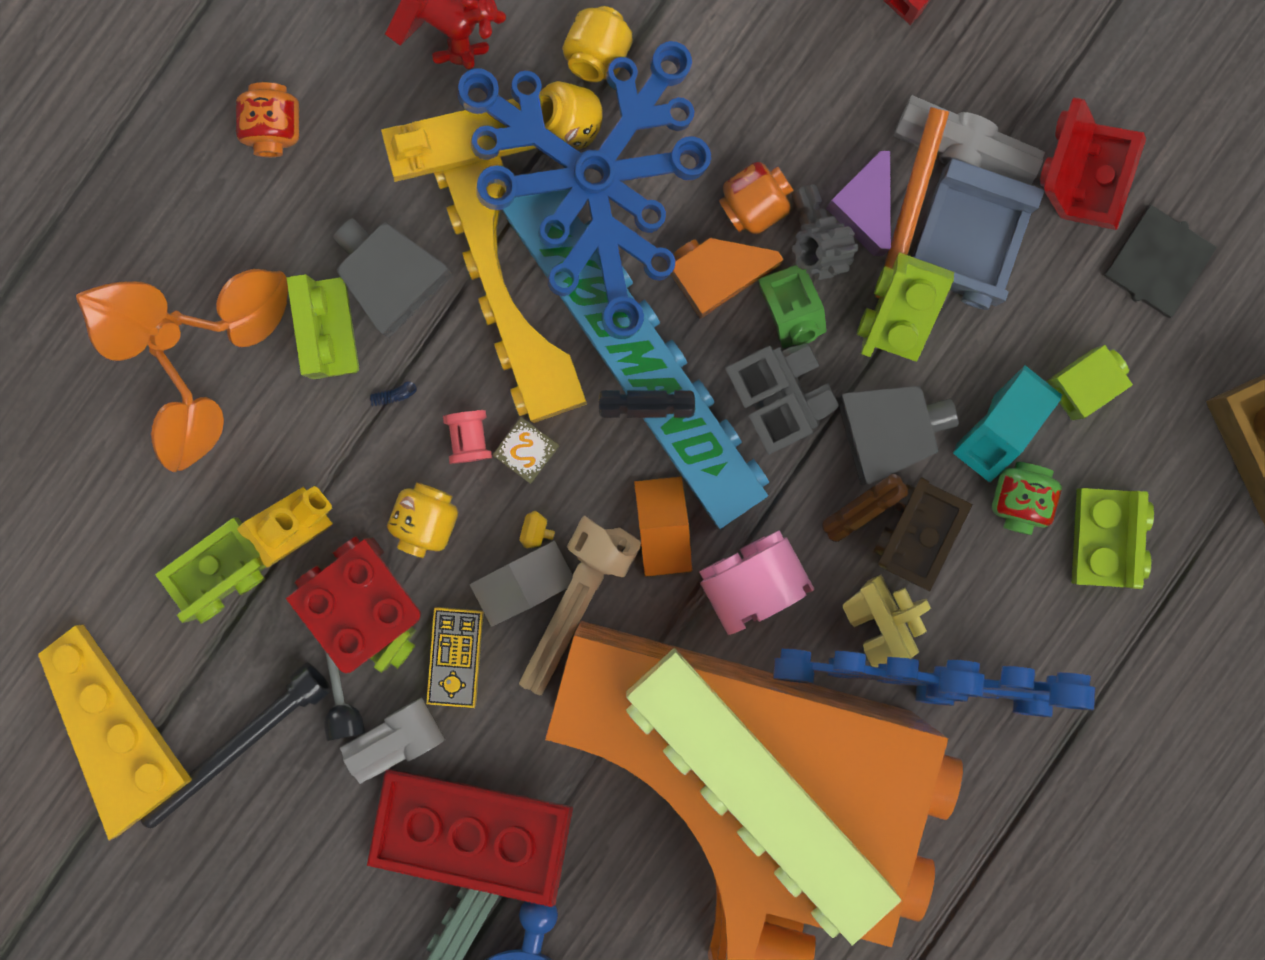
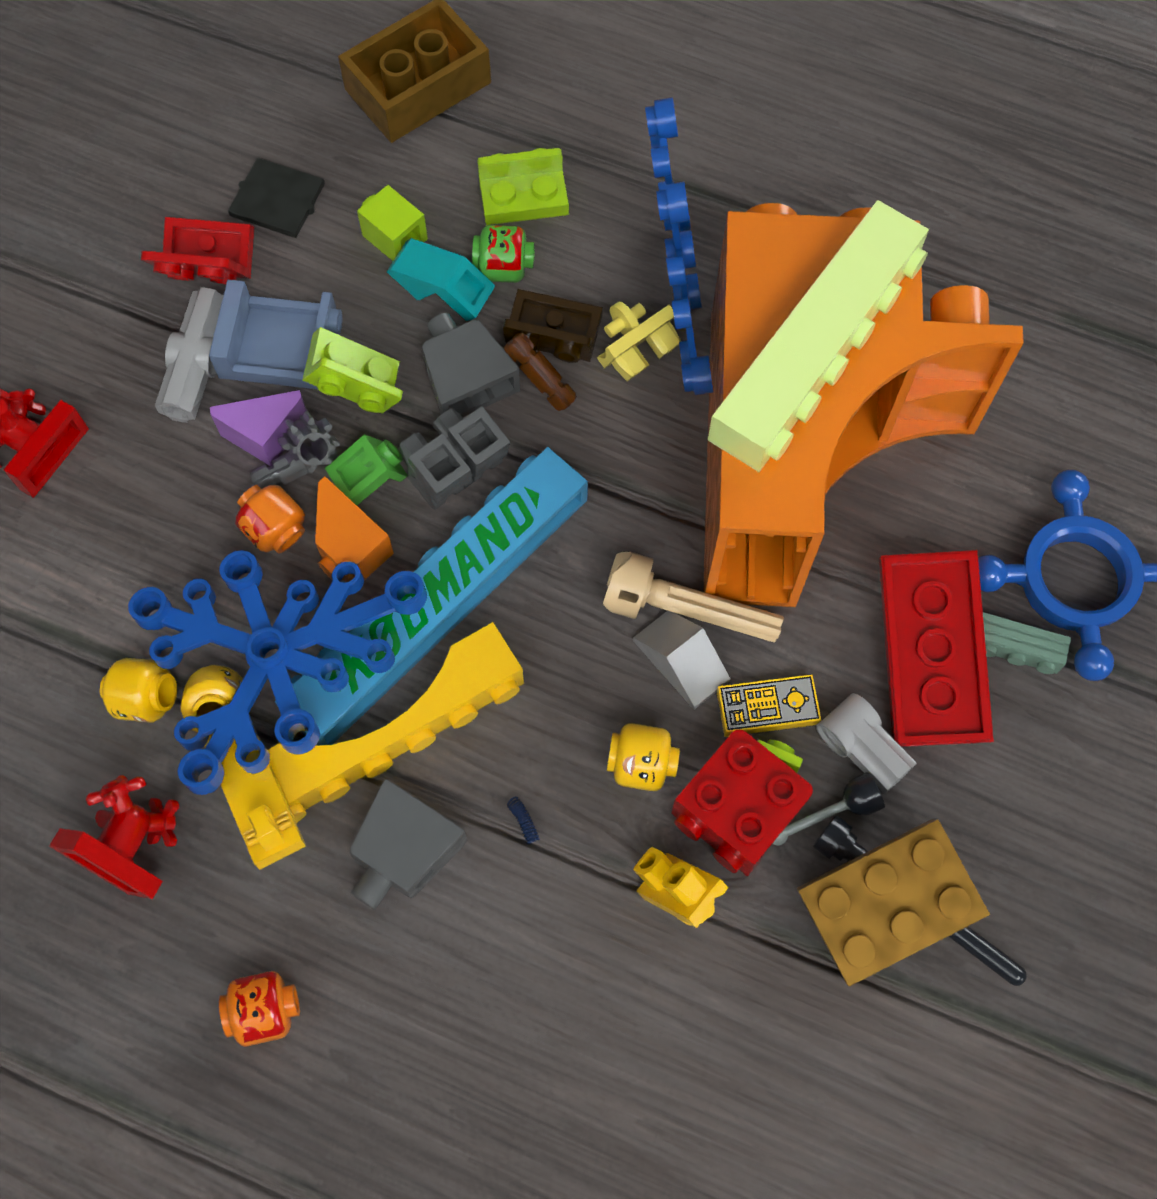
camera: 105 degrees left, 20 degrees down
(113, 738) = (946, 1030): yellow wing -> none
(134, 315) = (500, 1076): orange plant -> none
(212, 572) = (746, 958): lime bracket -> none
(227, 717) = (892, 901): none -> pearl gold brick
(322, 327) = (468, 899): lime bracket -> none
(467, 436) = (536, 731): coral bush -> none
(526, 450) = (552, 680): tile -> none
(535, 530) = (627, 657): yellow rock -> none
(646, 403) = (484, 562): black axle -> none
(663, 526) = (593, 540): orange slope -> none
(756, 585) = (630, 442): bright pink brick -> none
(917, 184) = (247, 383): orange bar -> none

